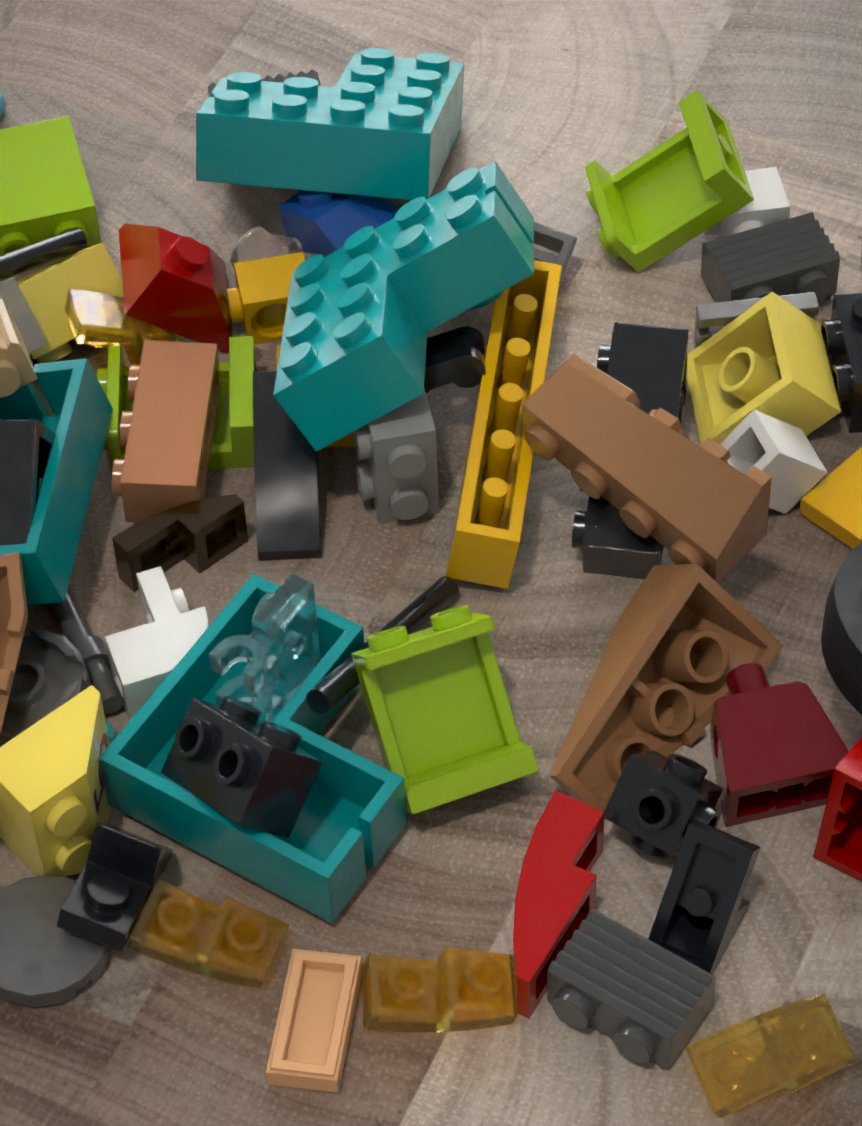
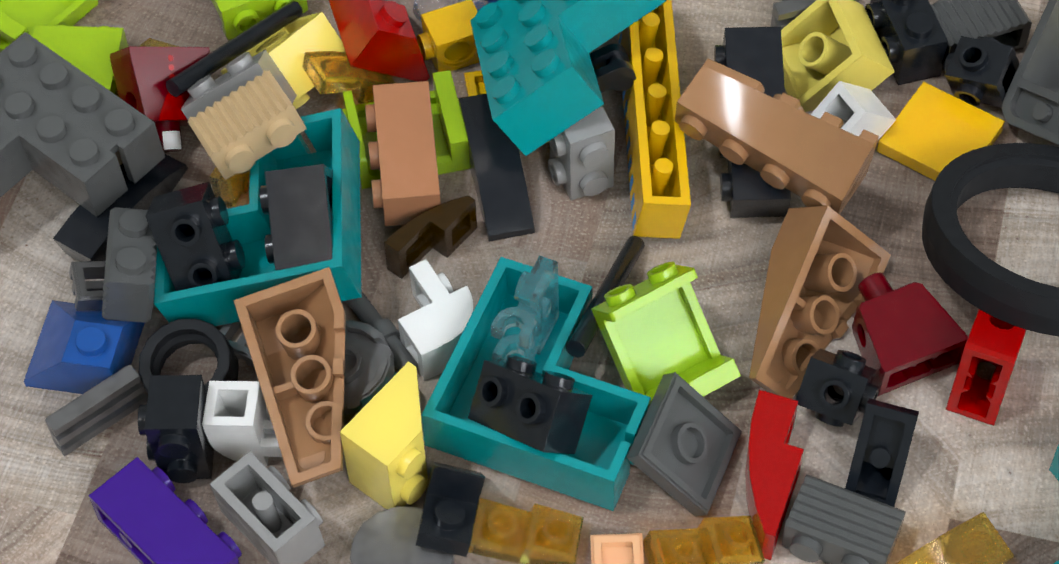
camera: 10 degrees left, 5 degrees up
(441, 848) = (684, 444): none -> dark grey plate

